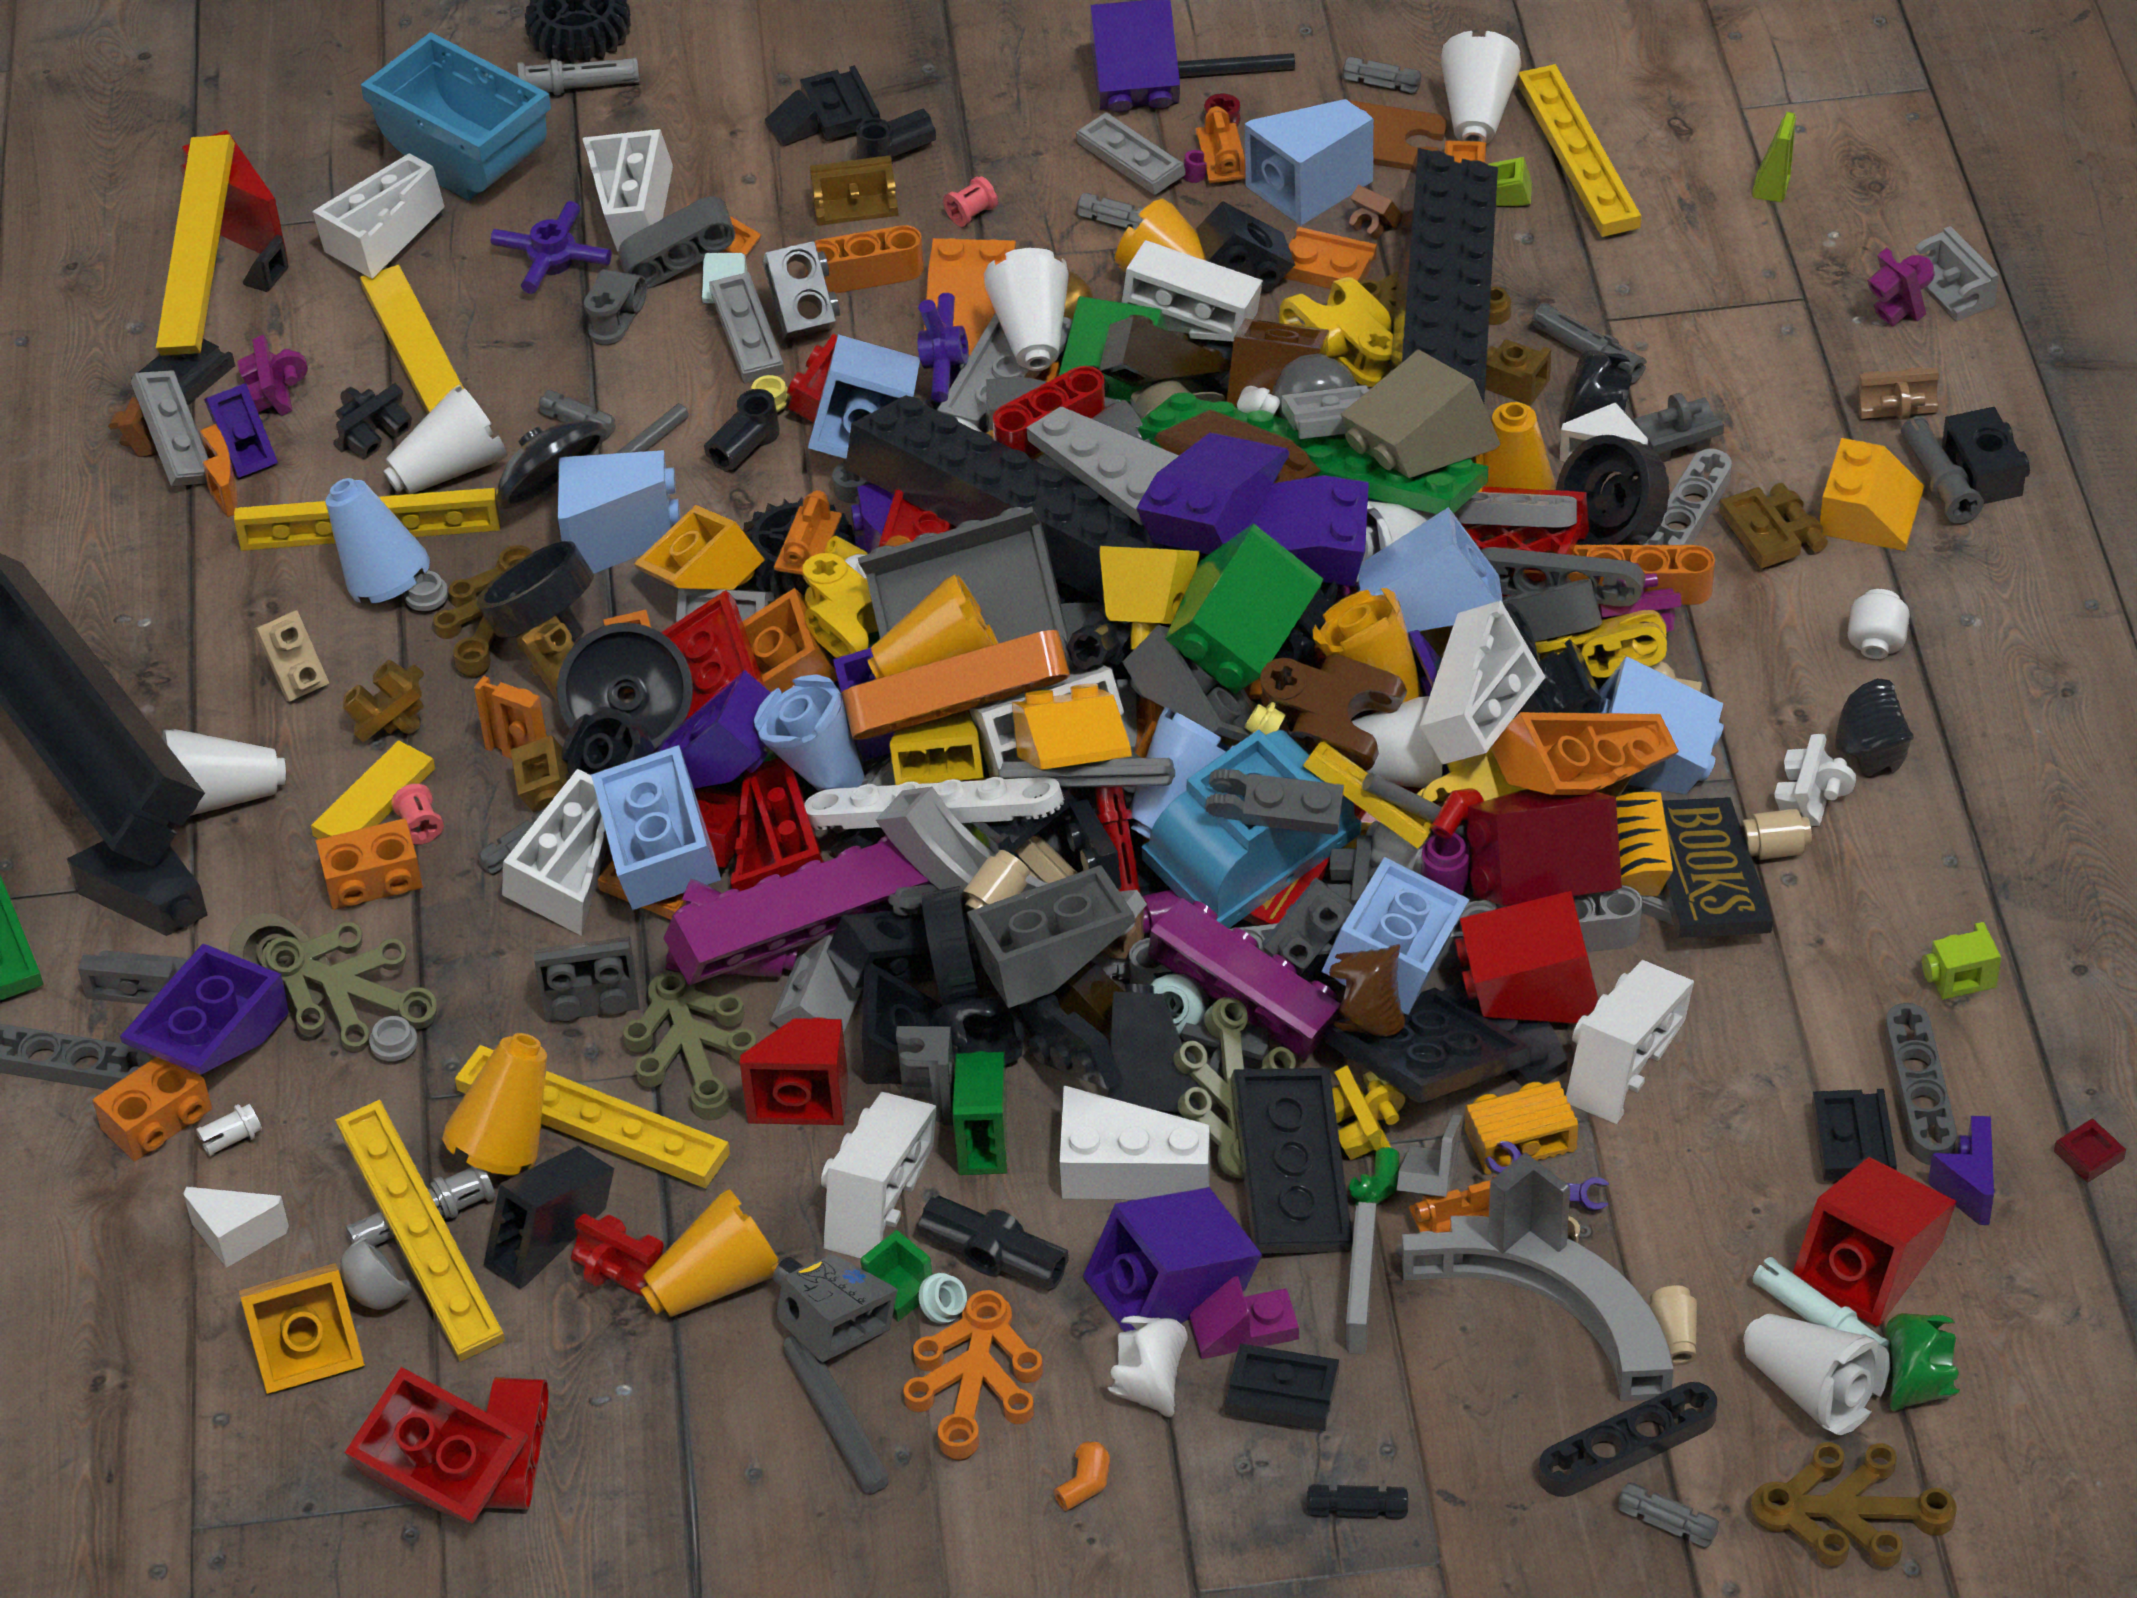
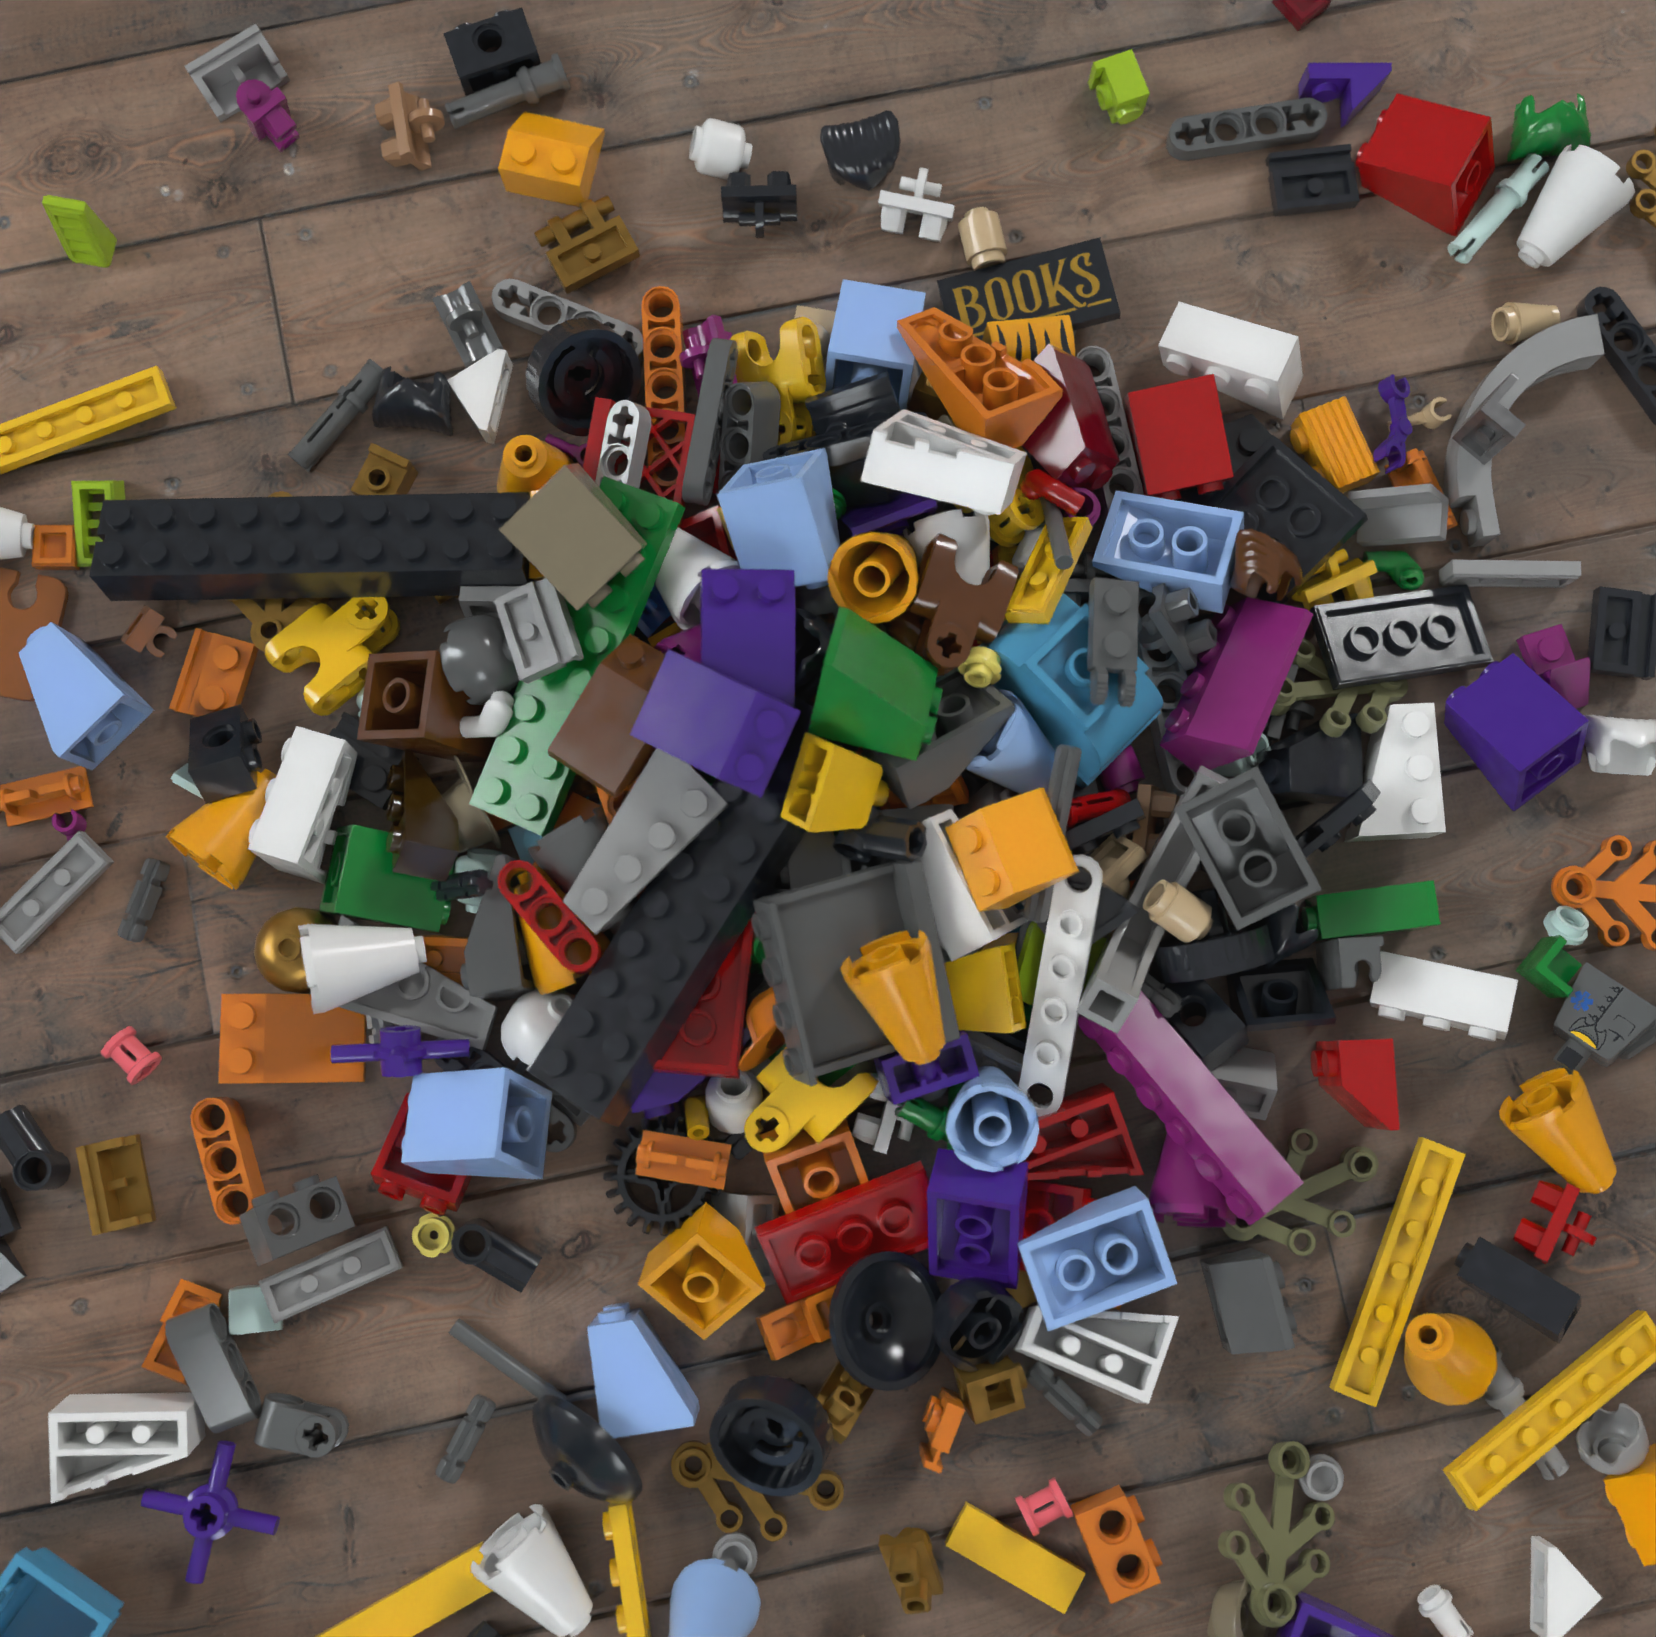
camera: 100 degrees left, 35 degrees up
(955, 684) = (963, 969): orange beam -> none
(993, 1242) = (1503, 888): black piece -> none
(1813, 654) = (759, 203): none -> black hips

